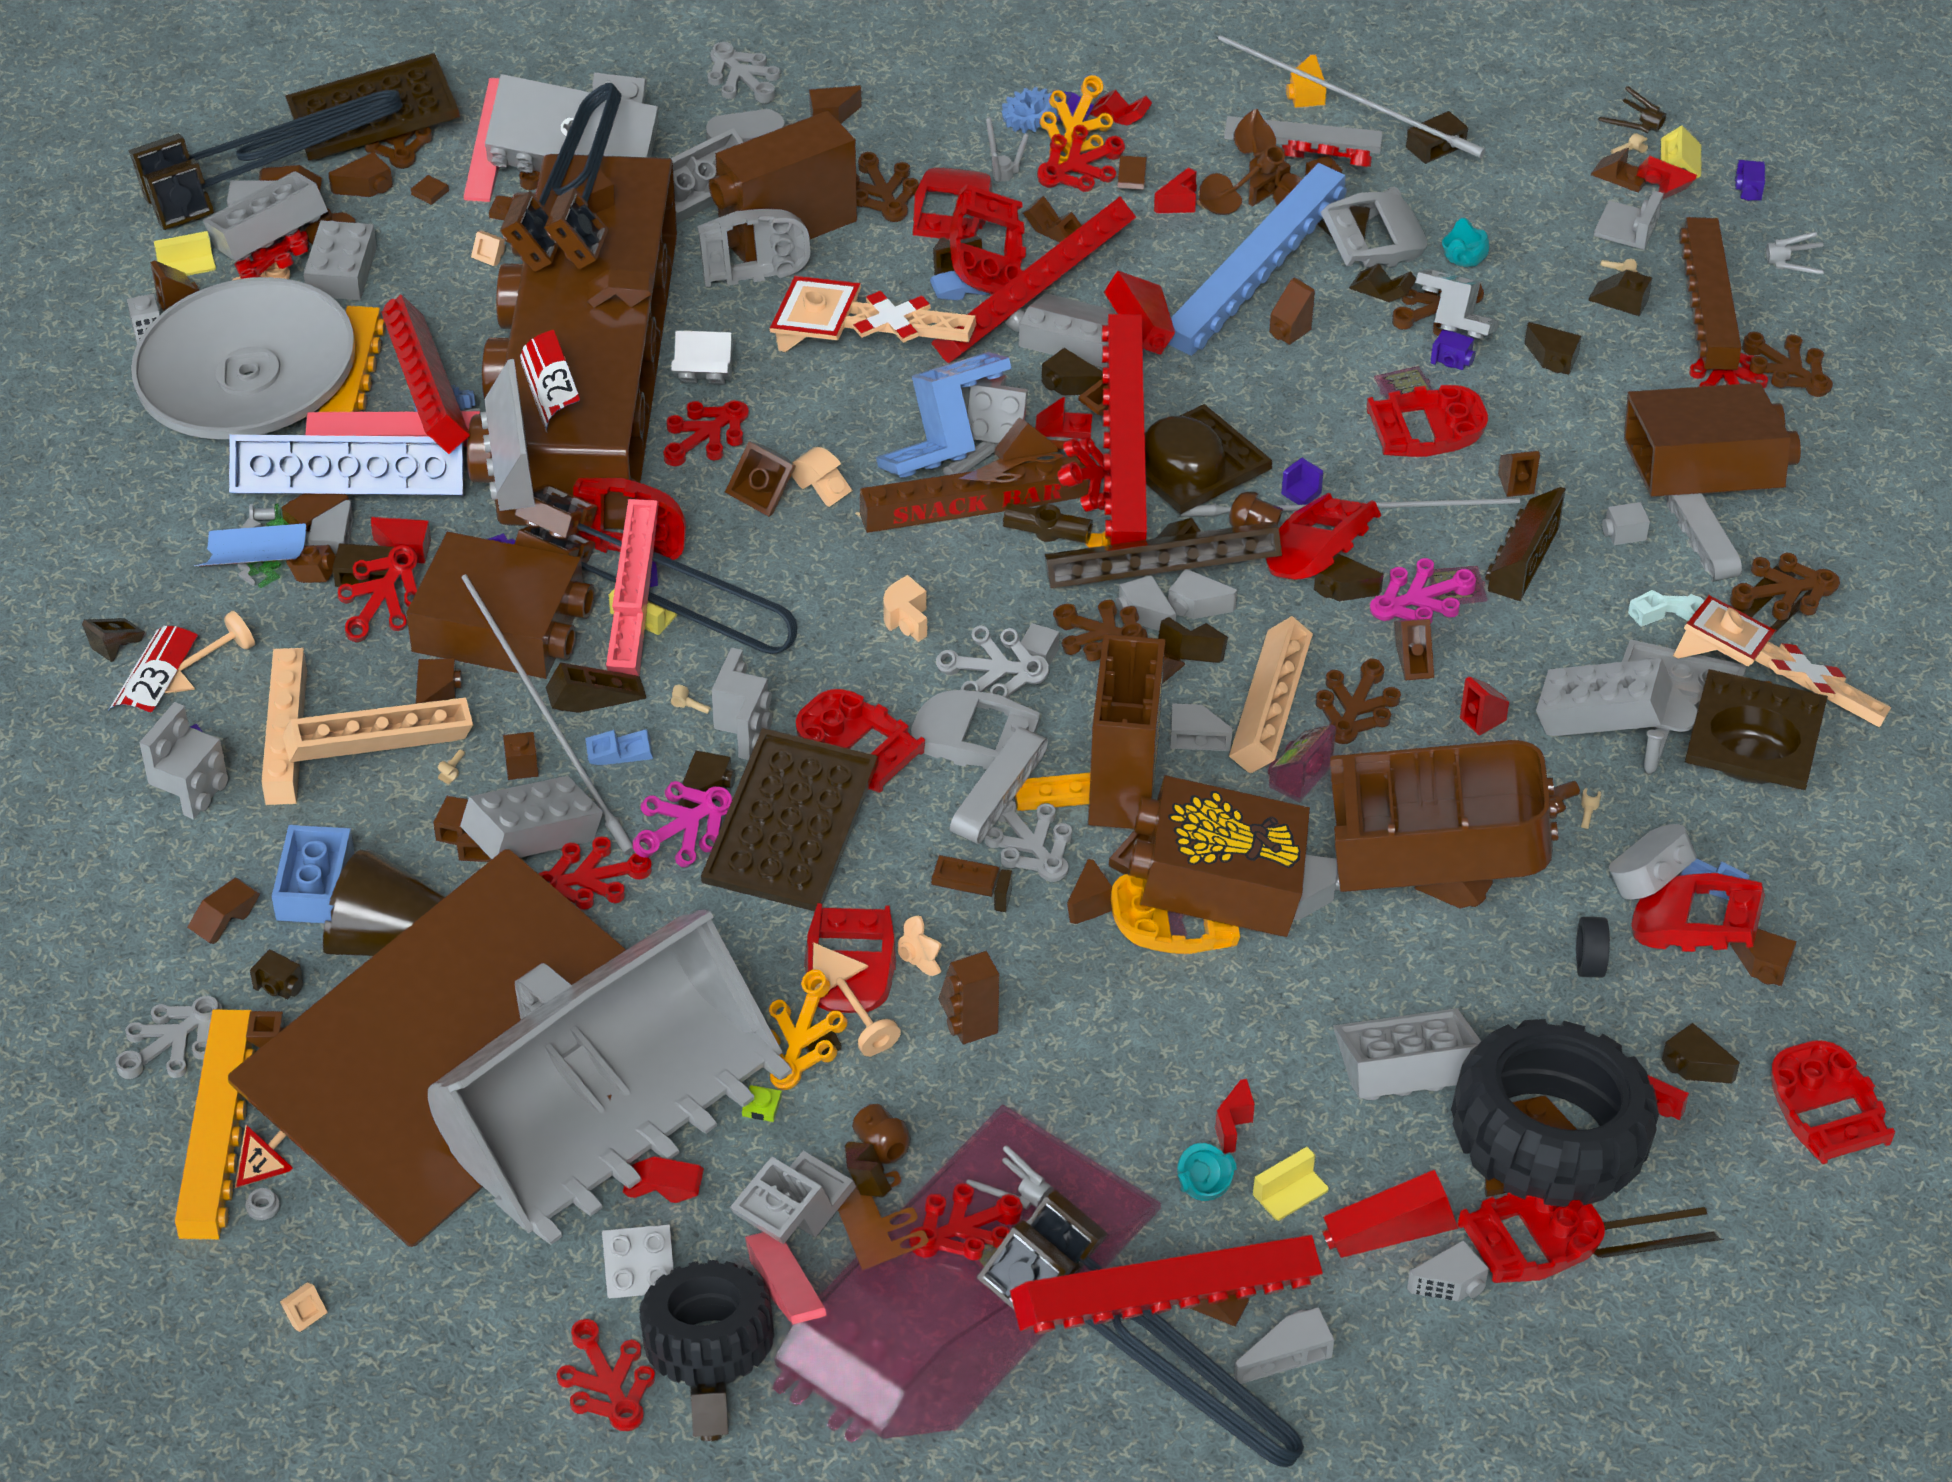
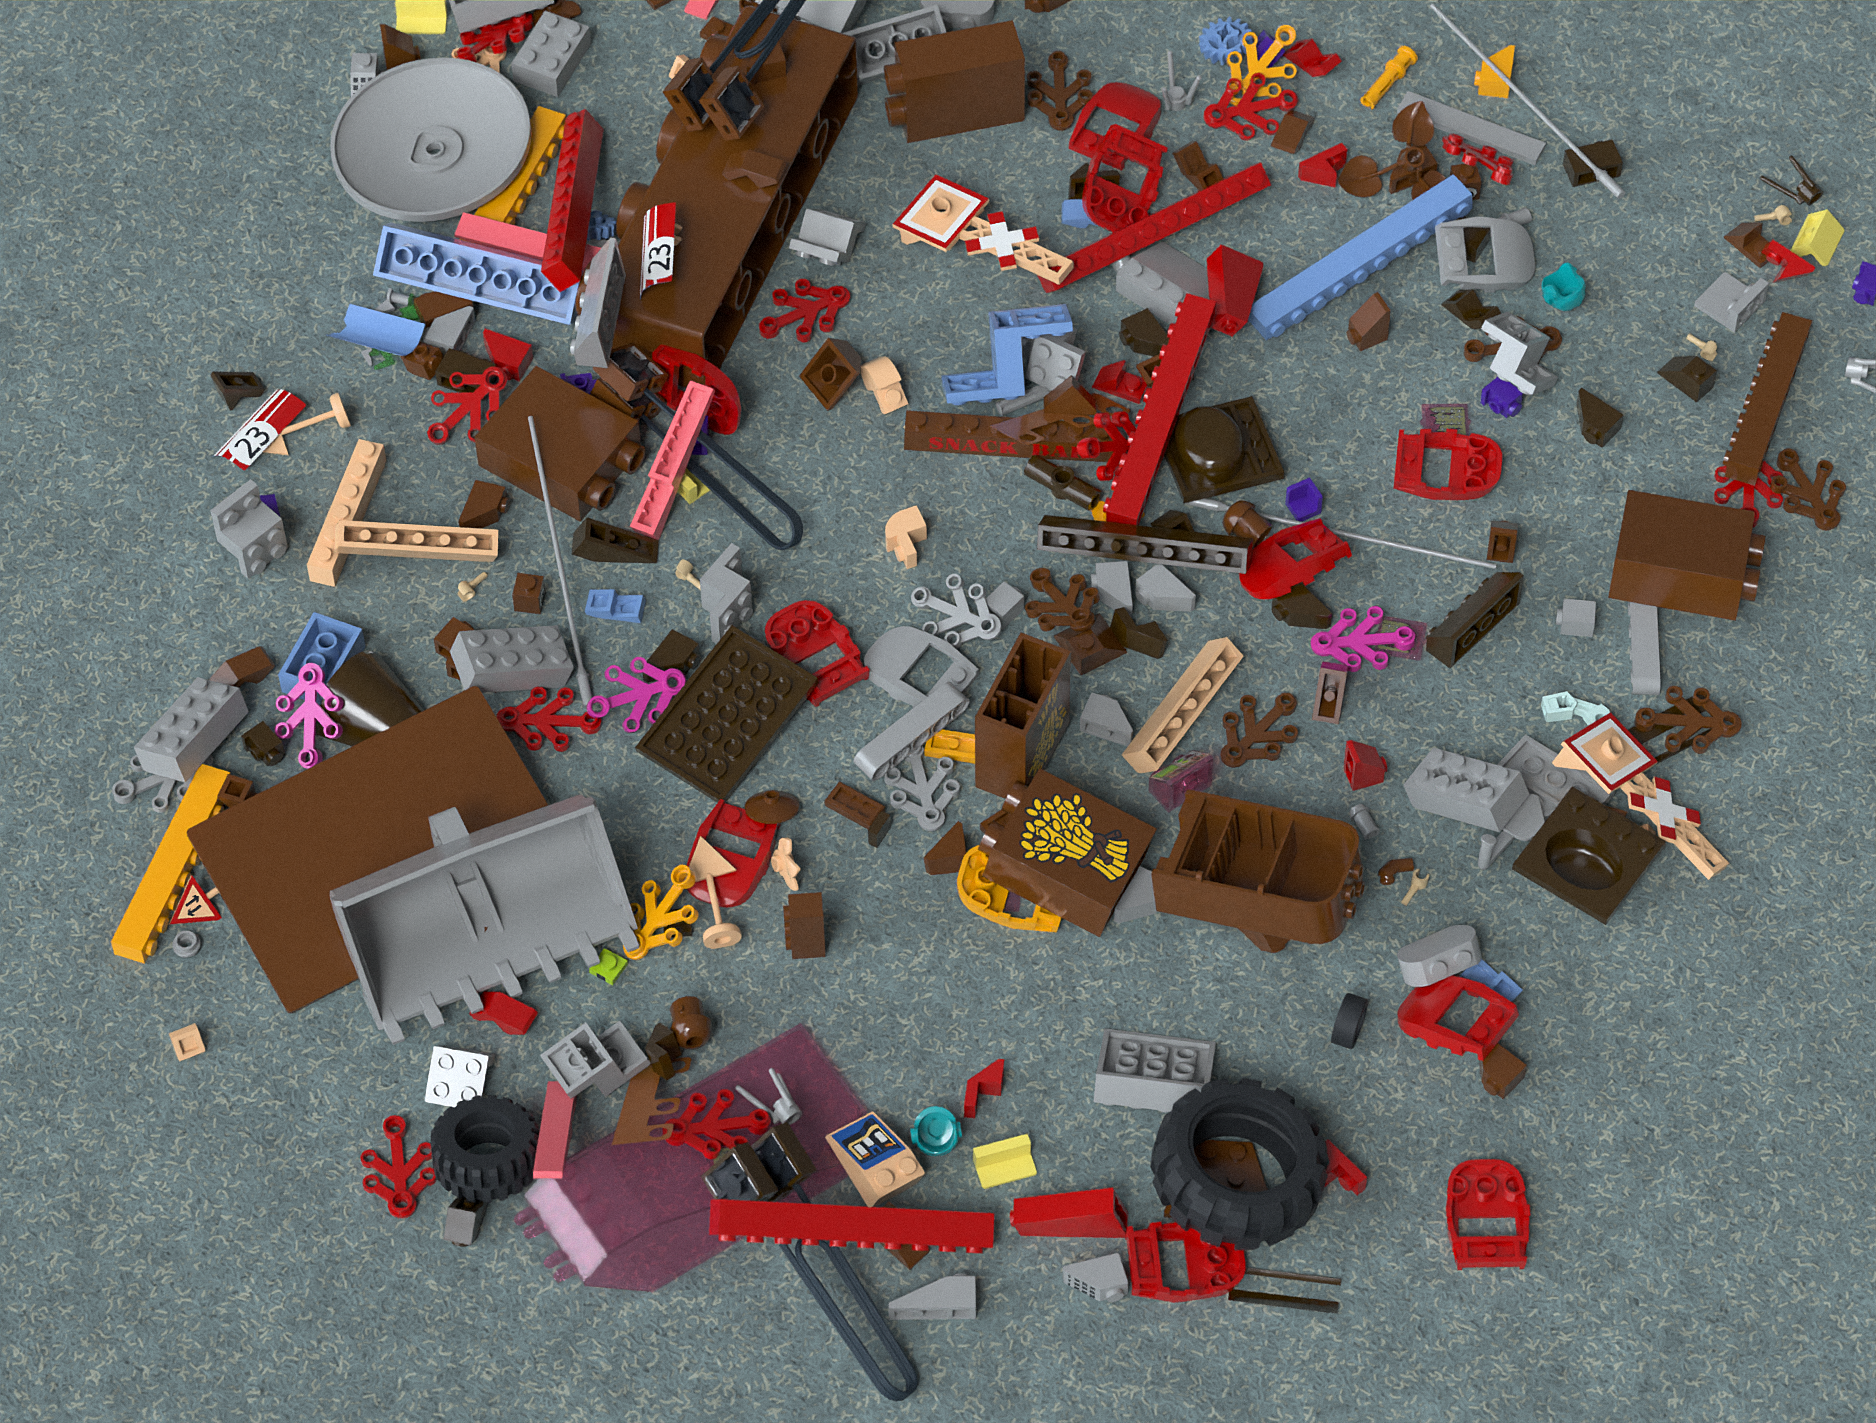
camera: 20 degrees right, 10 degrees up
(189, 977) = (191, 729): none -> light grey brick
(321, 924) = (309, 712): none -> plant
(780, 246) = (936, 134): light grey slope -> none
(876, 897) = (772, 806): none -> reddish brown dish
(1152, 1215) = (875, 1159): none -> slope
(1205, 102) = (1394, 70): none -> light orange pin
(1699, 1057) = (1395, 1145): dark brown slope -> none

